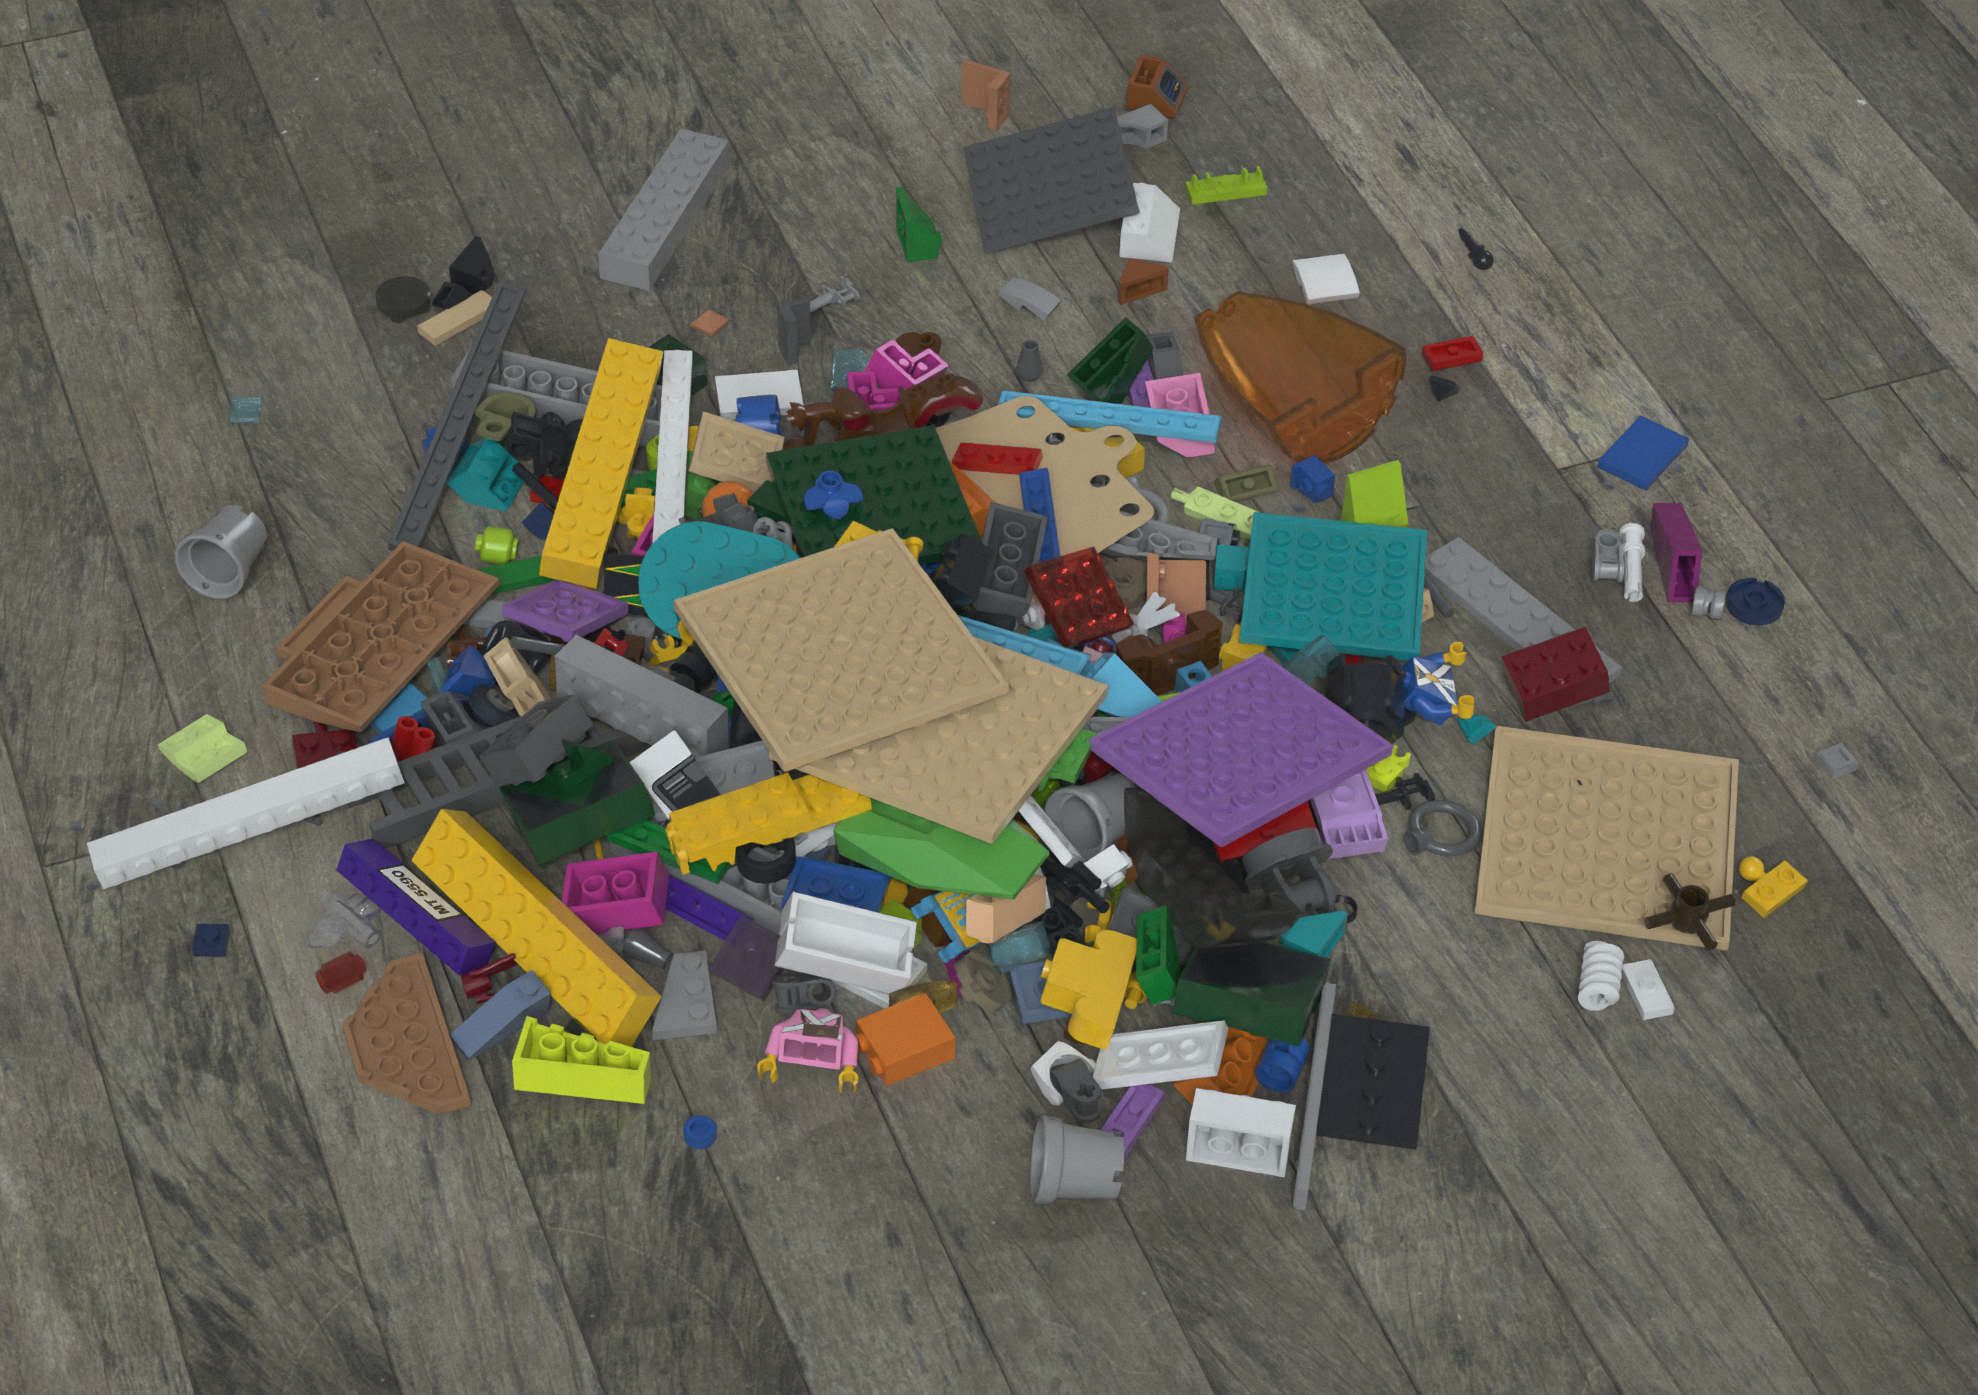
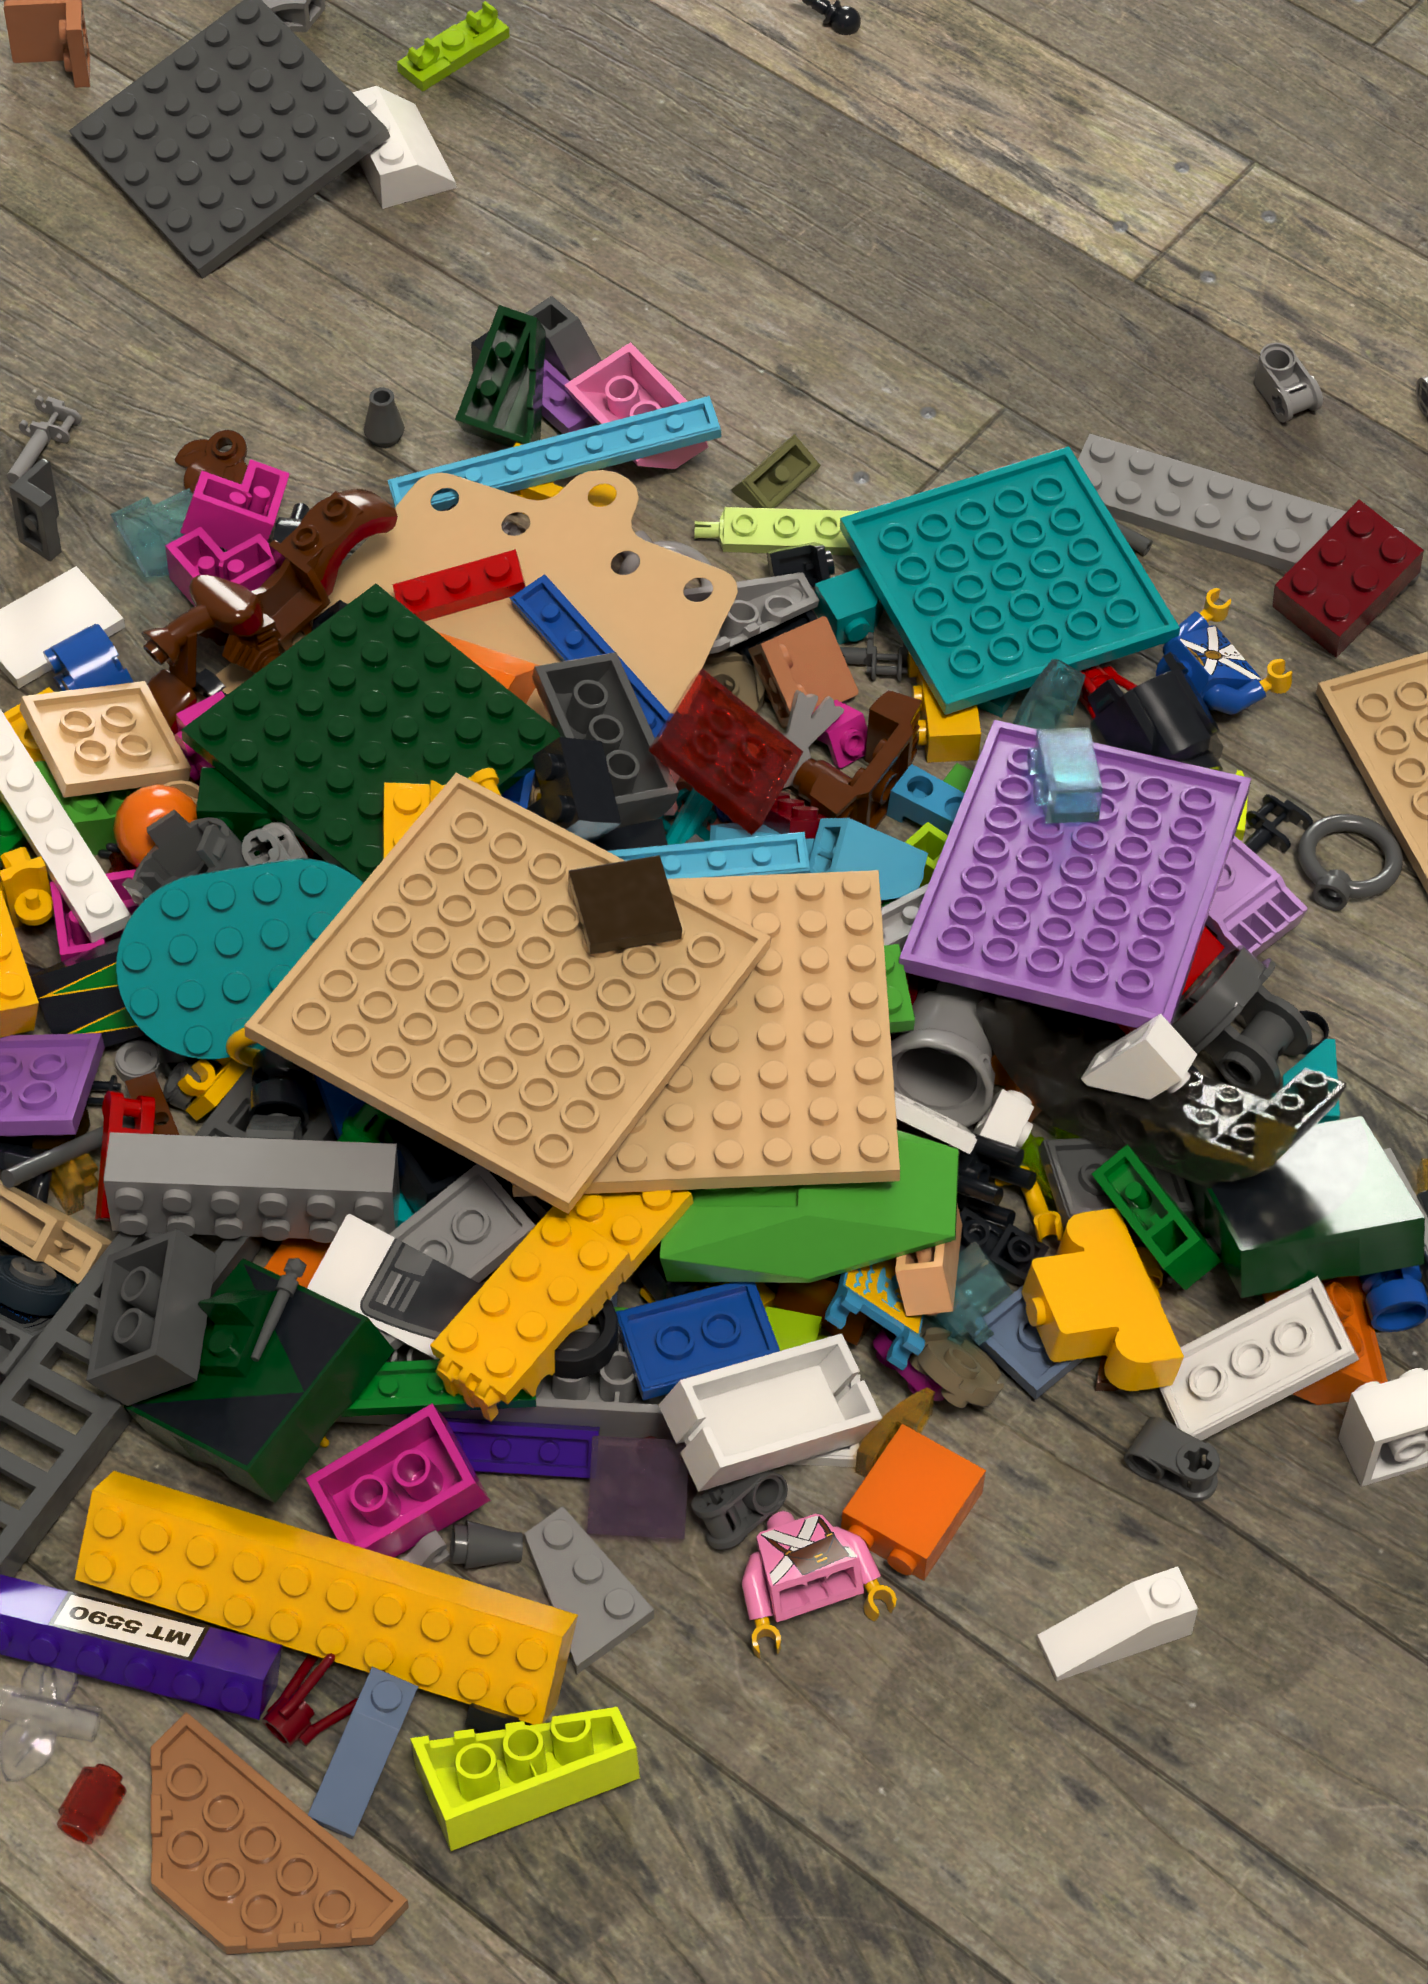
camera: 30 degrees left, 10 degrees up
(616, 757) = (285, 1288): none -> dark grey piece
(700, 1132) = (738, 1779): blue tile -> none
(832, 495) = (329, 759): blue plate -> none
(915, 229) = (94, 285): green slope -> none
(934, 631) = (624, 904): none -> dark brown tile
(979, 1157) = (1121, 1625): none -> white slope
(1033, 297) = (302, 318): light grey slope -> none
(1058, 1054) = (1113, 1454): white helmet -> none
(1074, 1162) = (1256, 1574): light grey piece -> none
(1134, 1113) = (1265, 1471): medium lavender plate -> none
(1141, 280) = (443, 233): dark orange slope -> none
(1198, 856) = (1143, 1062): none -> white slope
(1271, 691) = (1066, 775): none -> clear light blue brick
(1301, 372) = (756, 284): clear orange panel -> none
(1313, 479) = (860, 431): blue brick -> none
(1326, 278) = (673, 129): white slope -> none
(1376, 496) = (981, 431): lime slope -> none
(1442, 387) = (924, 227): black slope -> none
(1452, 353) = (903, 172): red plate -> none
(1476, 727) = (1296, 698): teal tile -> none
(1633, 553) = (1312, 358): white pin -> none
(1643, 453) = (1222, 214): blue tile -> none
(1676, 551) = (1362, 335): magenta slope -> none

